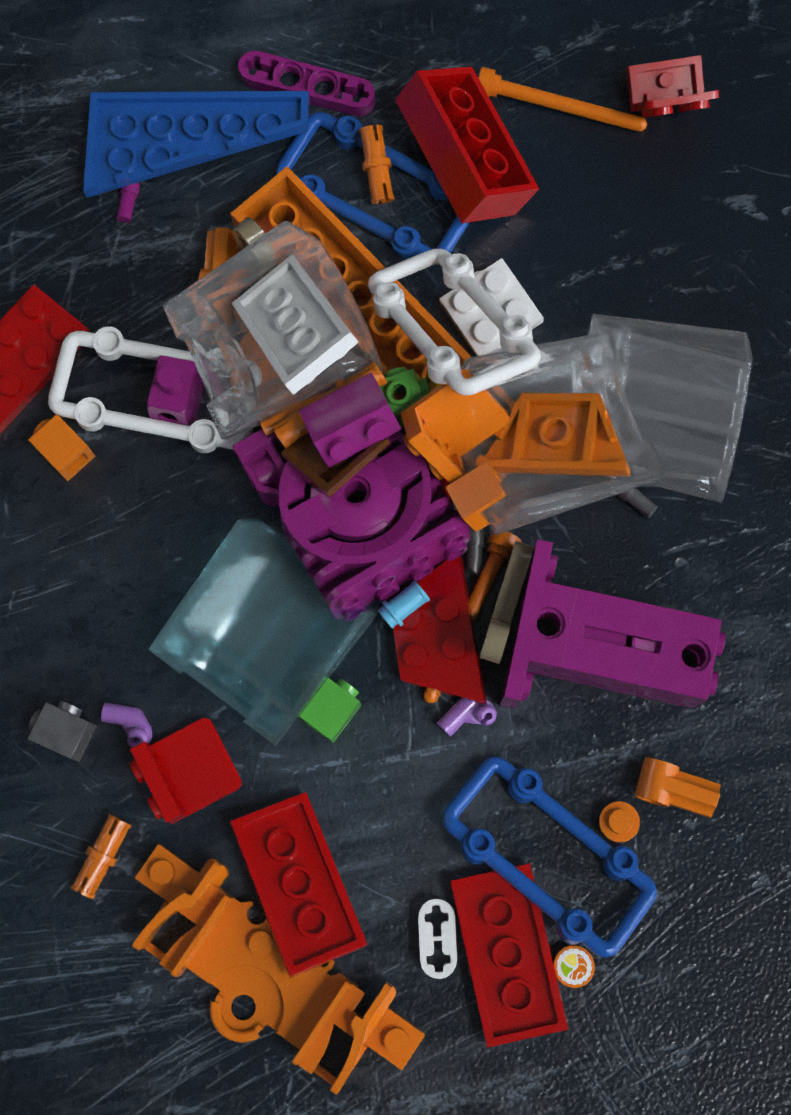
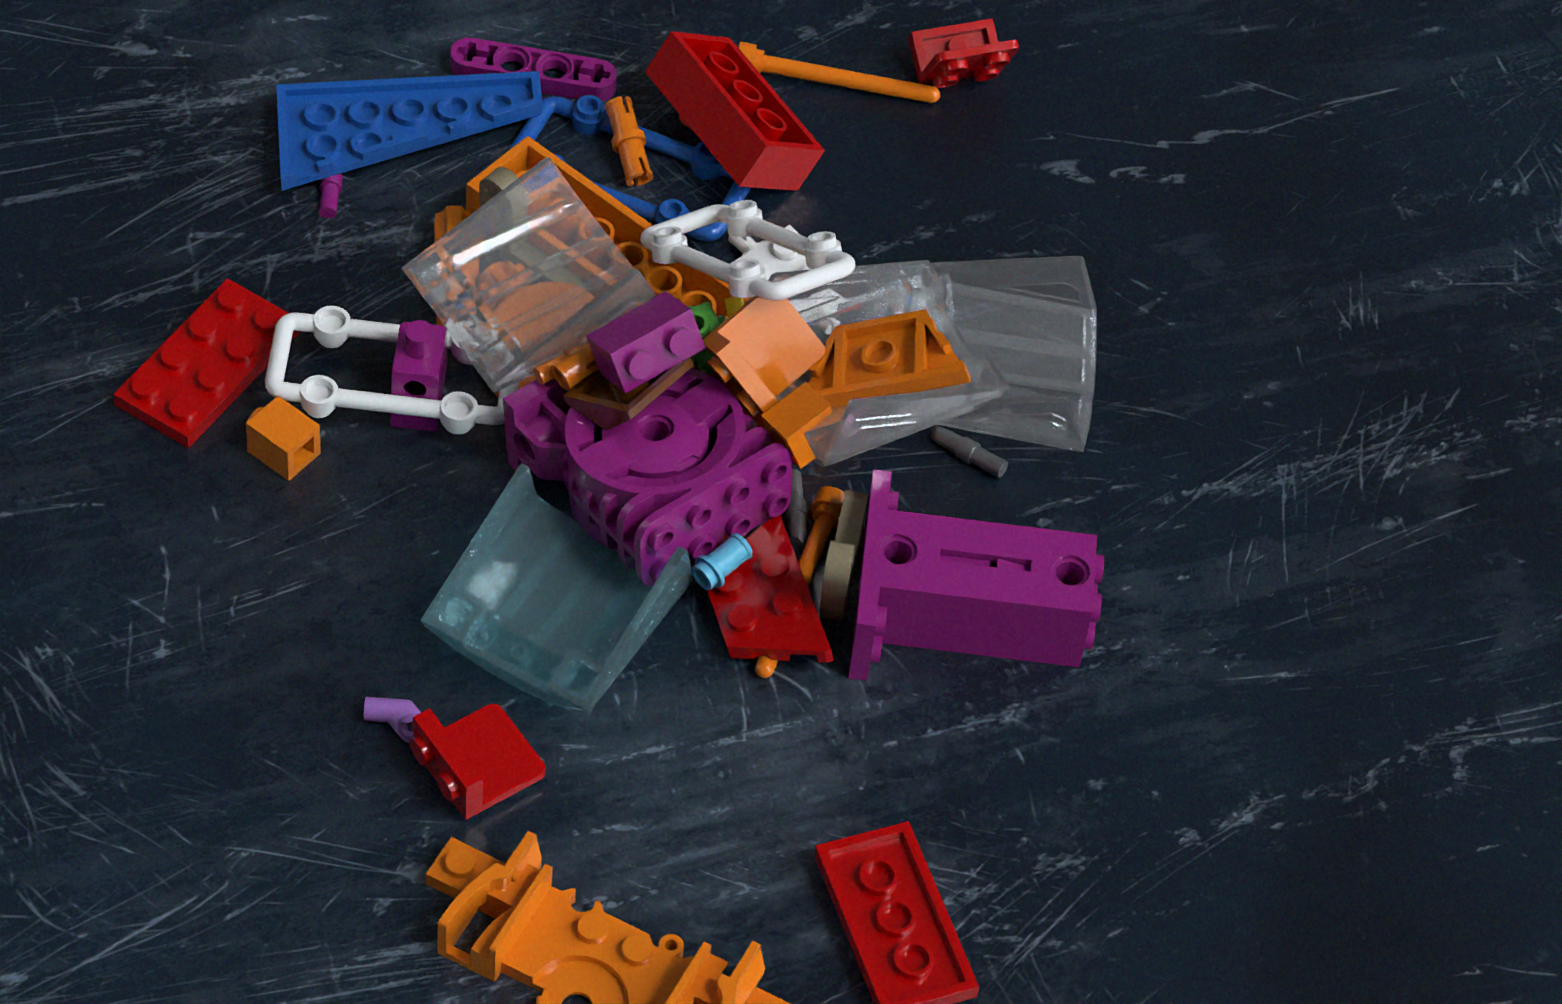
camera: 15 degrees left, 25 degrees down
(61, 730) = (317, 725): flat silver brick -> none
(101, 856) = (380, 856): orange pin -> none
(294, 324) = (567, 258): white plate -> none
(298, 884) = (631, 858): red plate -> none
(331, 708) = (646, 684): bright green brick -> none
(447, 937) = (817, 913): white beam -> none
(467, 712) = (811, 680): medium lavender arm -> none
(573, 966) = (978, 931): tile -> none
(619, 821) = (1009, 780): orange plate -> none
(619, 862) = (968, 873): blue bar -> none
(666, 785) = (1057, 735): orange piece -> none

